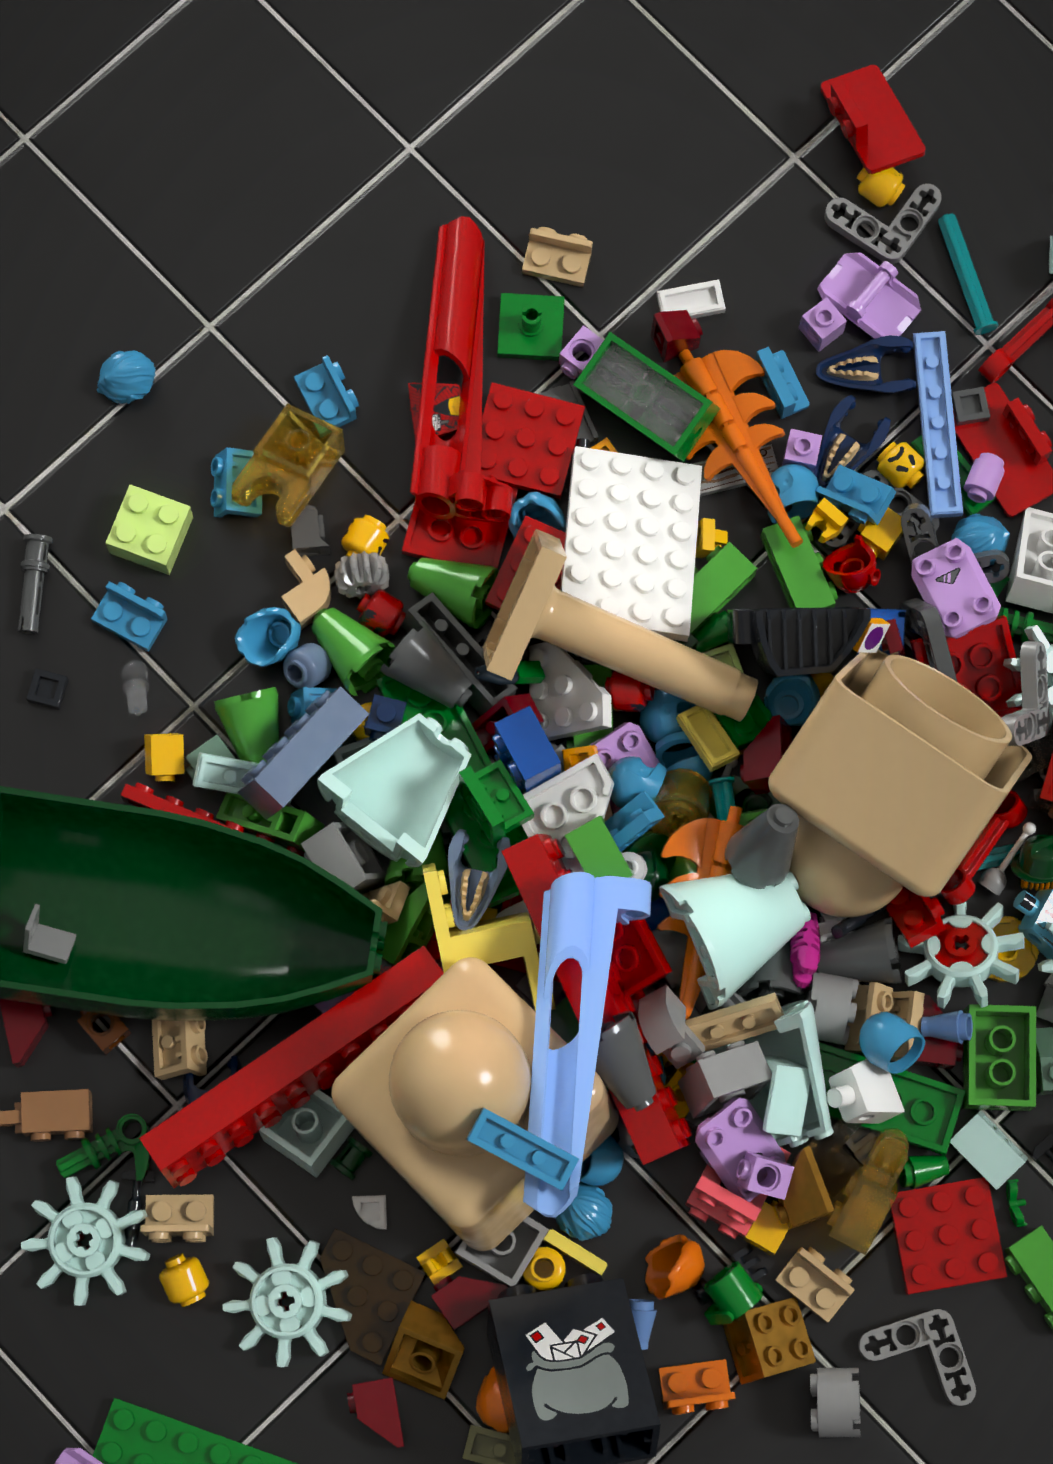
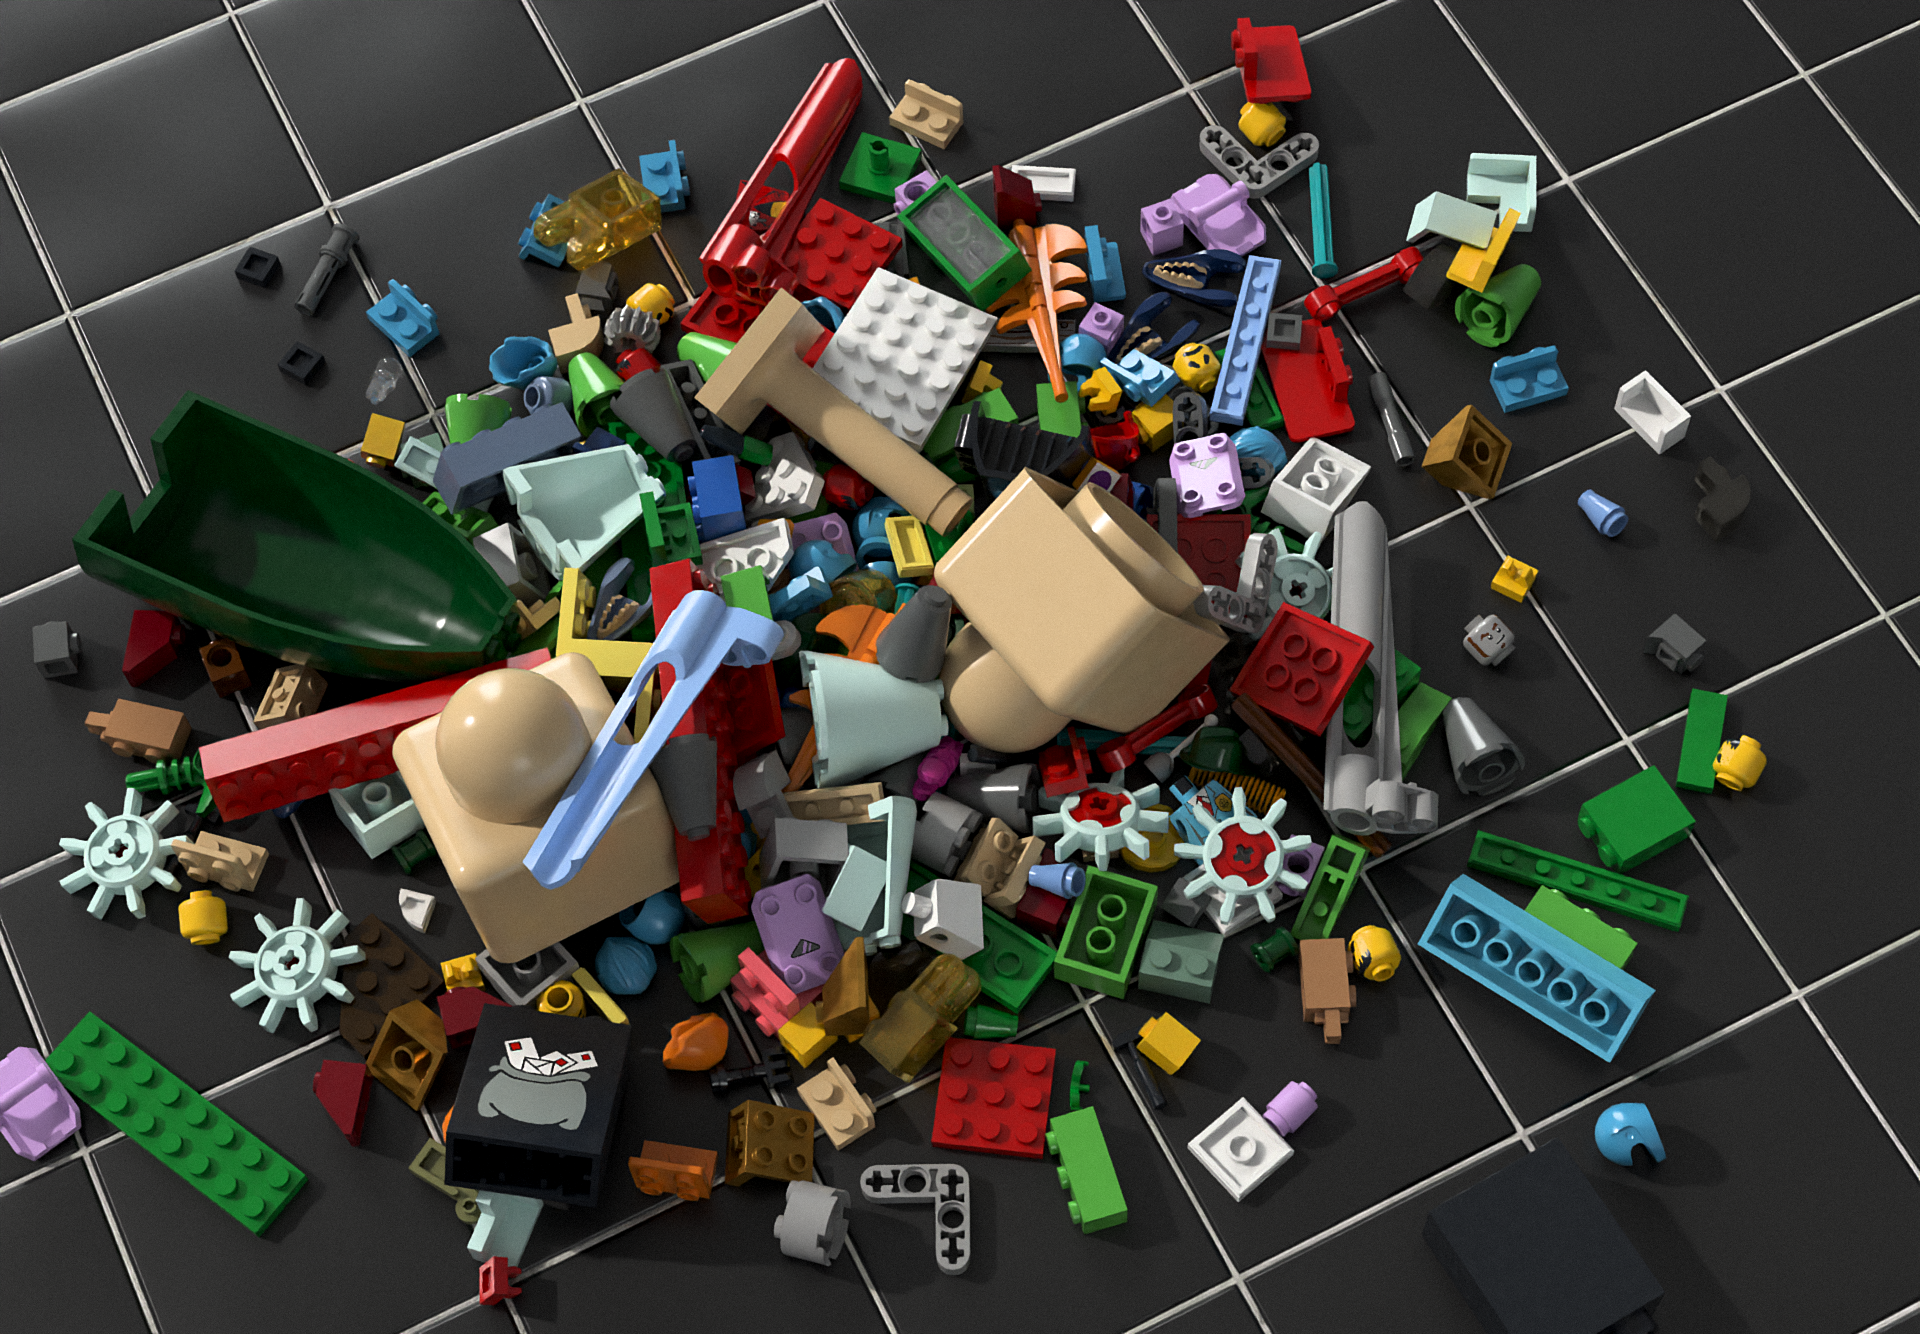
camera: 25 degrees right, 15 degrees down
(47, 941) = (196, 568): light grey bracket -> none
(126, 377) = (483, 120): dark azure hair -> none
(149, 529) = (450, 248): yellowish green brick -> none
(522, 1149) = (537, 804): dark azure plate -> none
(644, 1317) = (641, 1088): medium blue cone -> none
(665, 1184) = (711, 957): none -> bright green cone
(732, 1294) = (742, 1078): green piece -> none
(777, 1179) = (827, 960): lavender brick -> none
(882, 1037) = (983, 862): dark azure helmet -> none
(984, 477) = (1275, 394): lavender brick -> none
(988, 1149) = (1065, 1022): light aqua brick -> none

